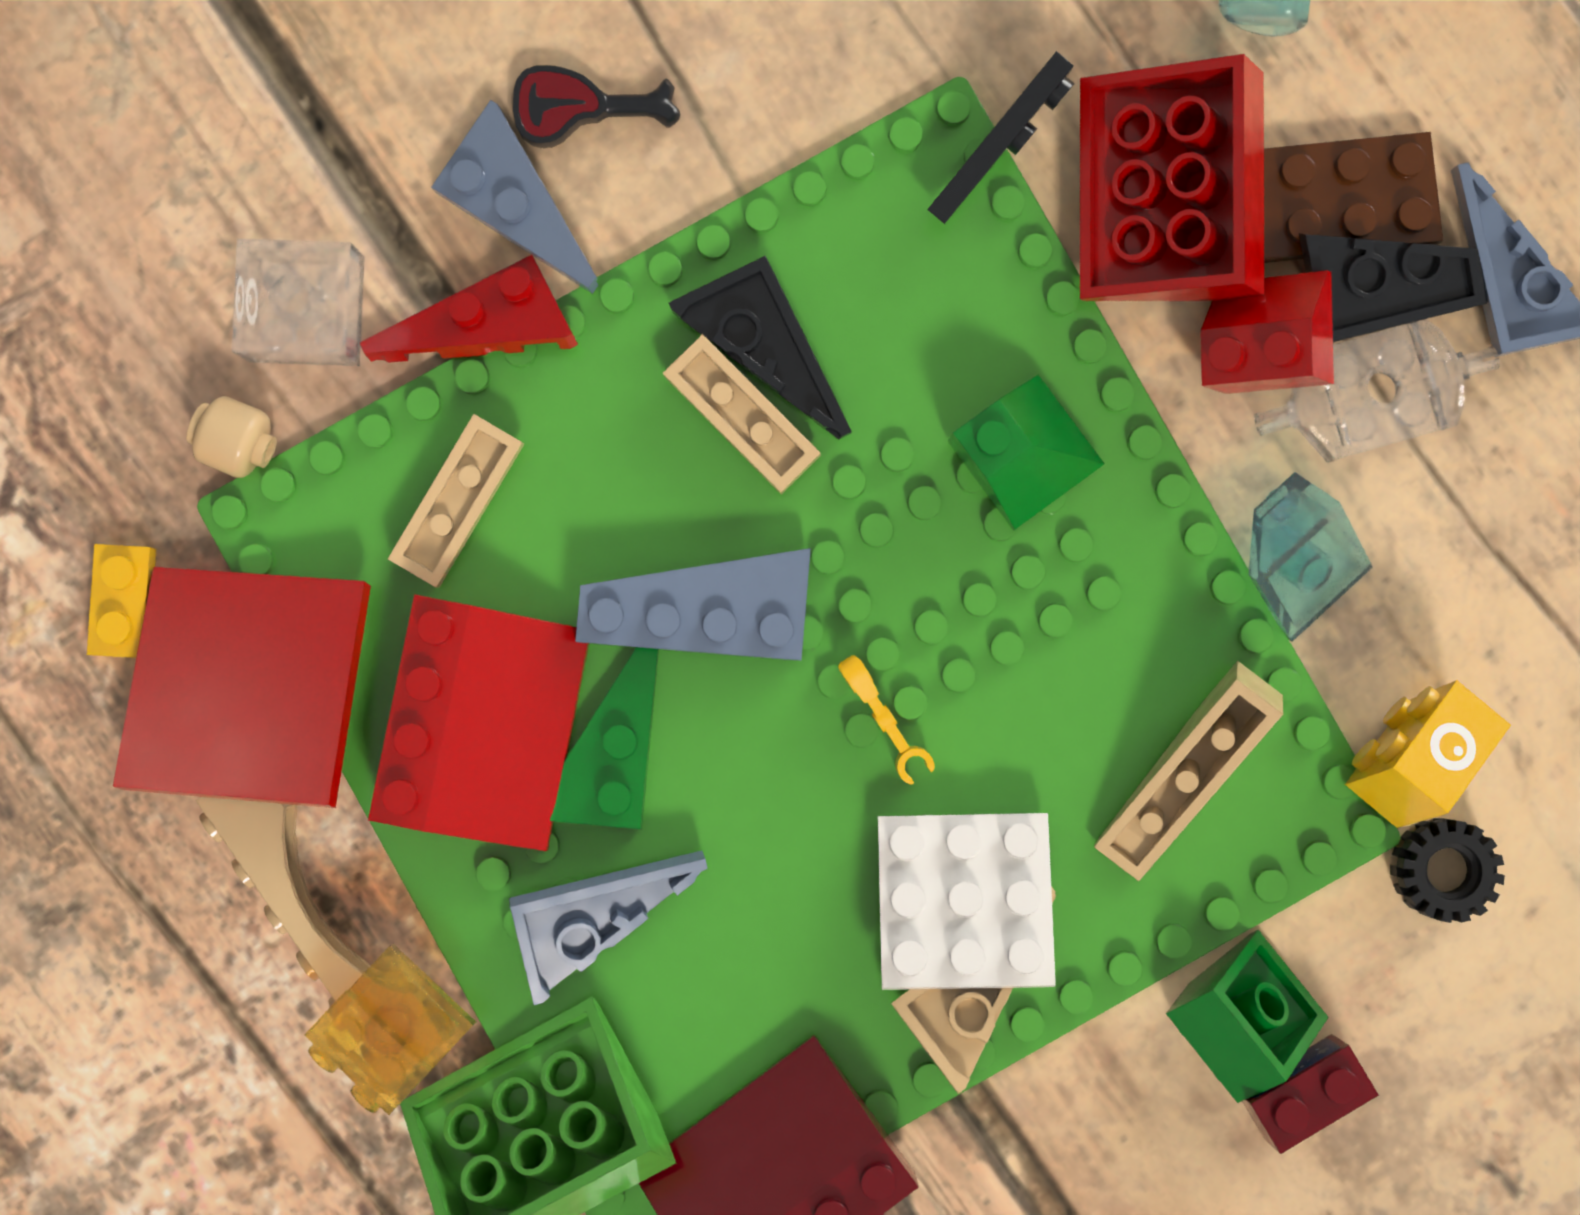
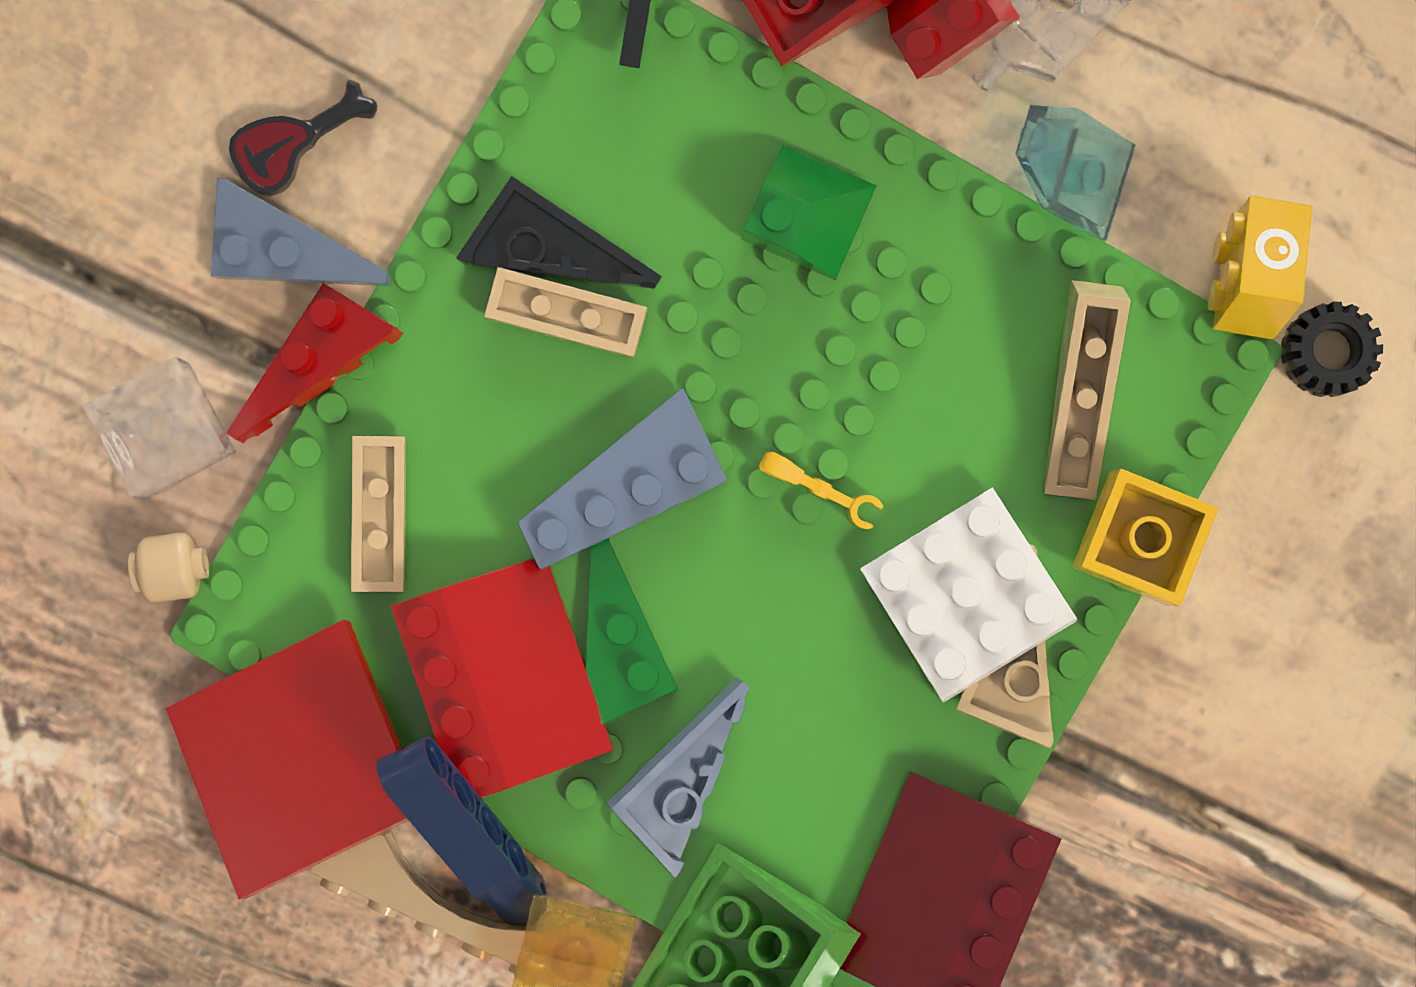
camera: 35 degrees left, 0 degrees up
(118, 598) = (153, 750): yellow plate -> none
(356, 842) = (461, 828): none -> dark blue piece
(1165, 946) = (1145, 537): none -> yellow brick
(1248, 1018) = (1249, 558): green slope -> none
(1317, 1093) = (1323, 589): dark red brick -> none

